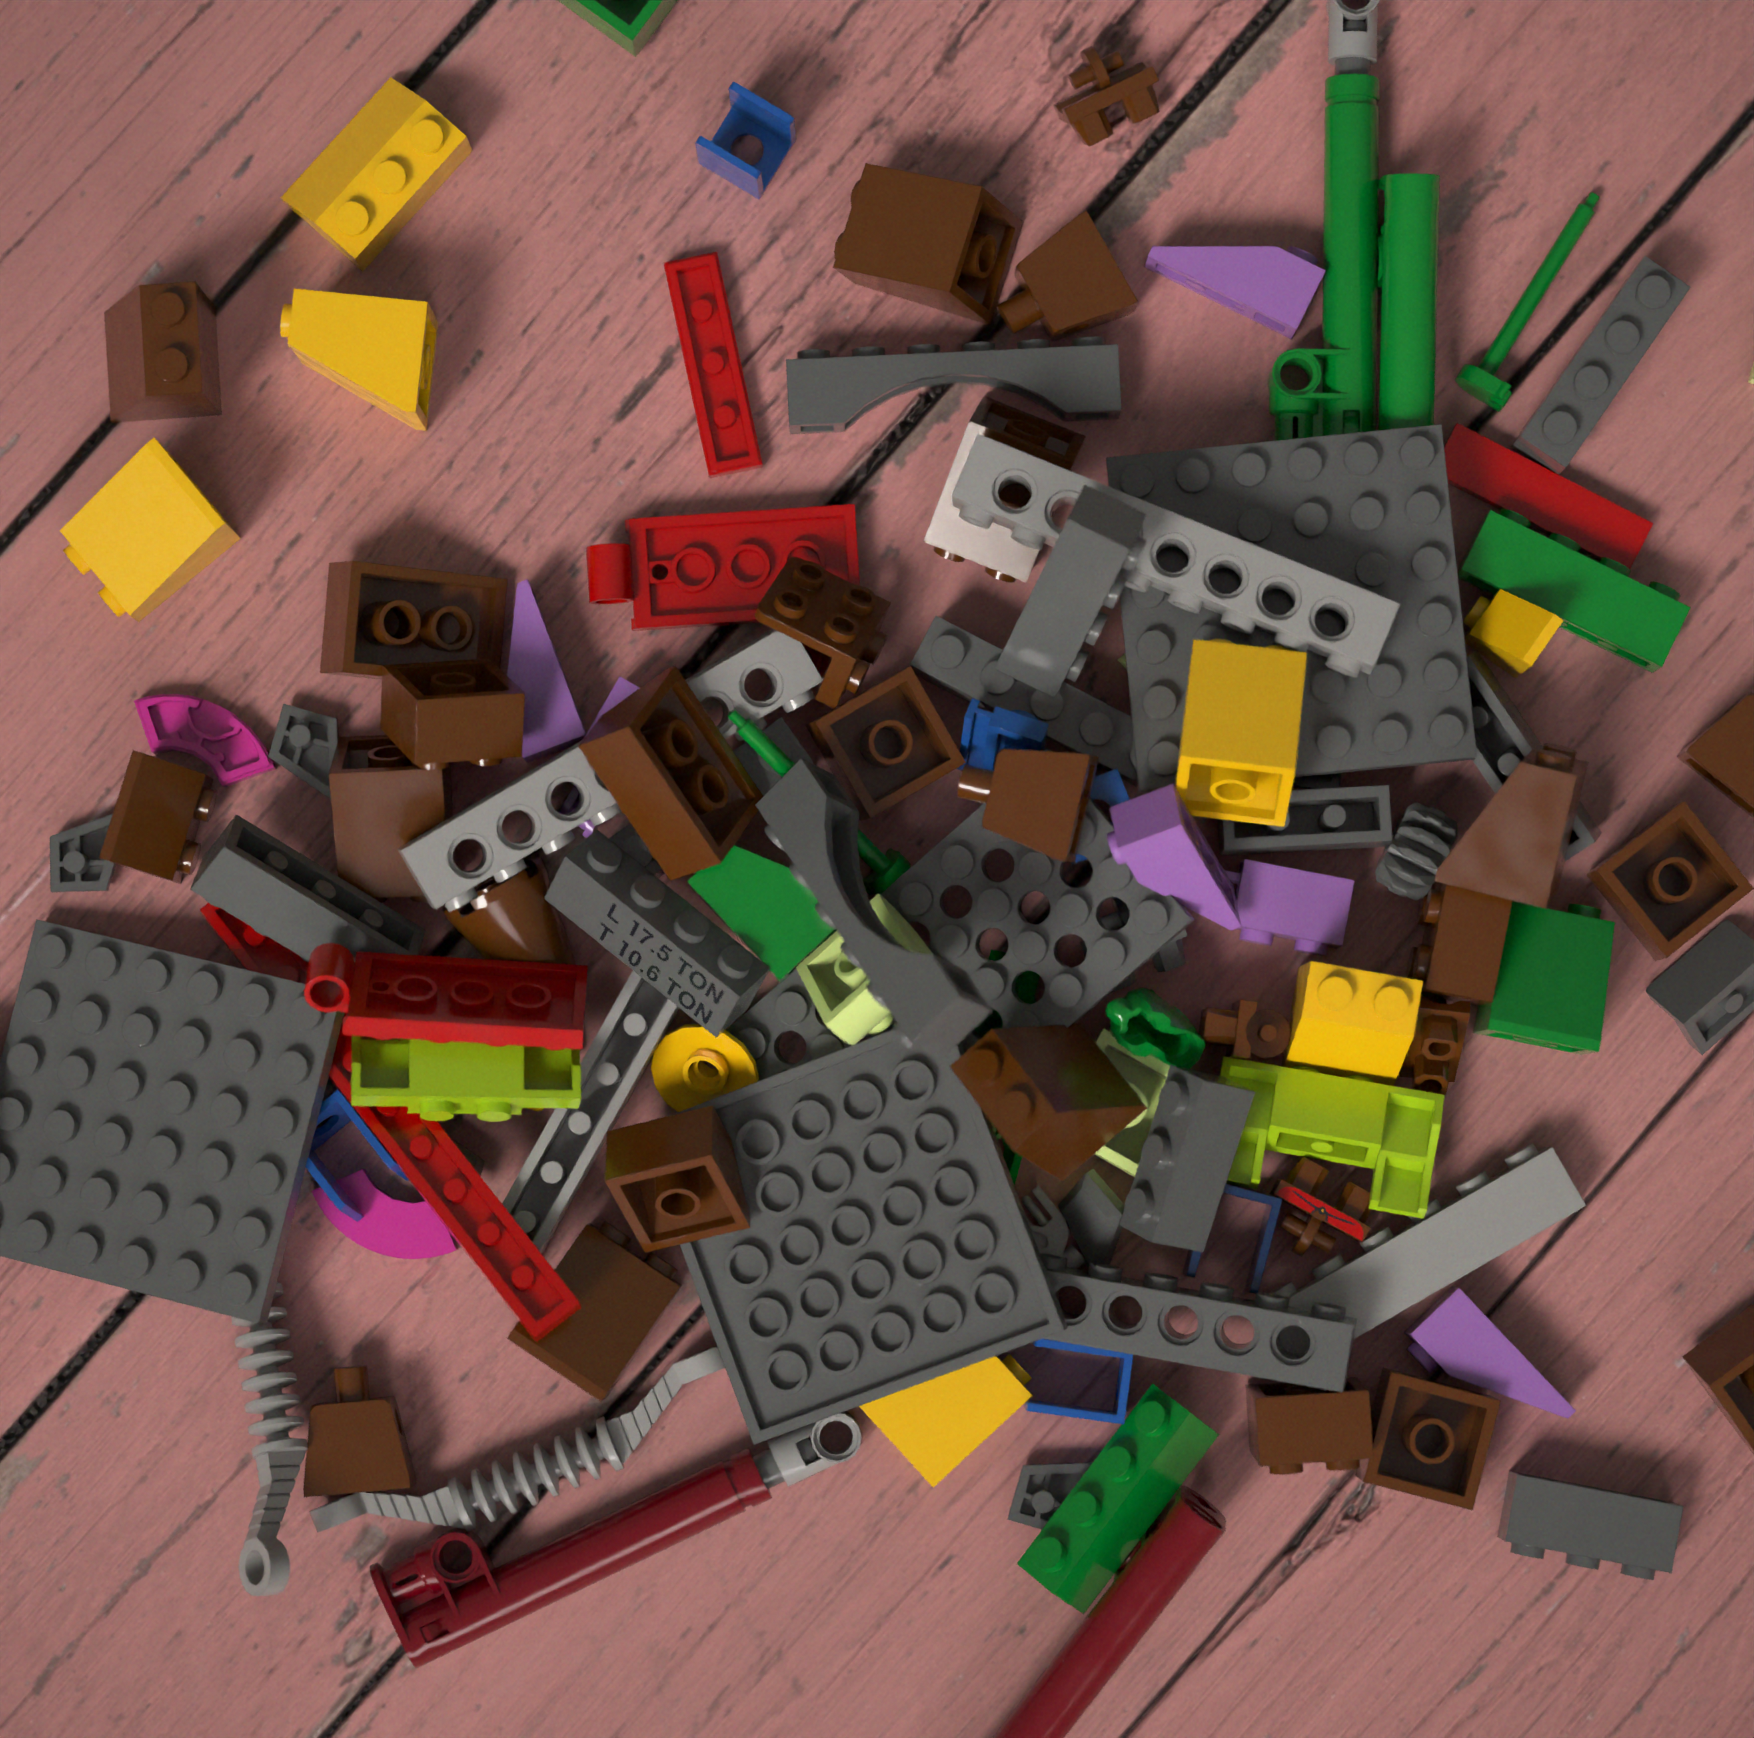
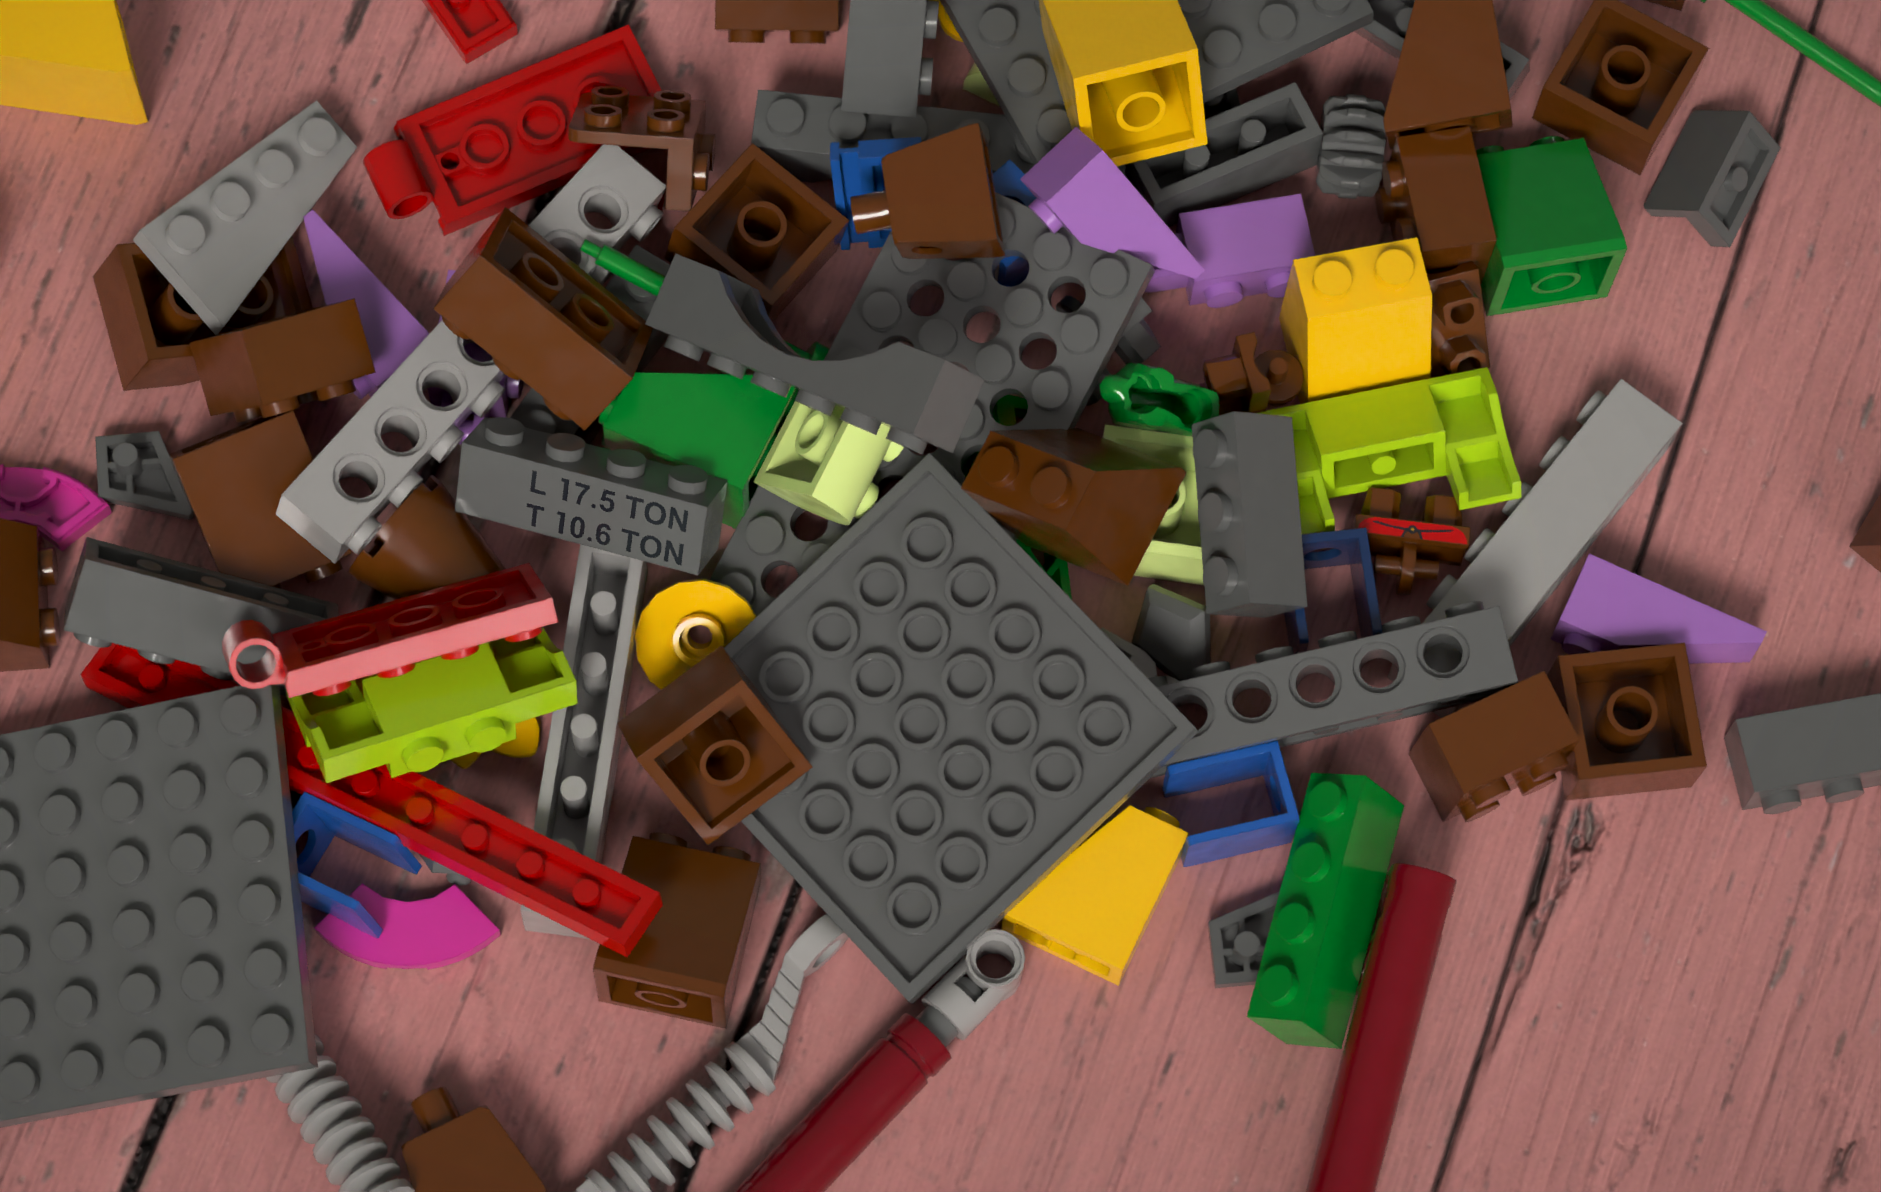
camera: 25 degrees left, 15 degrees down
(464, 566) = (241, 218): none -> light grey wing

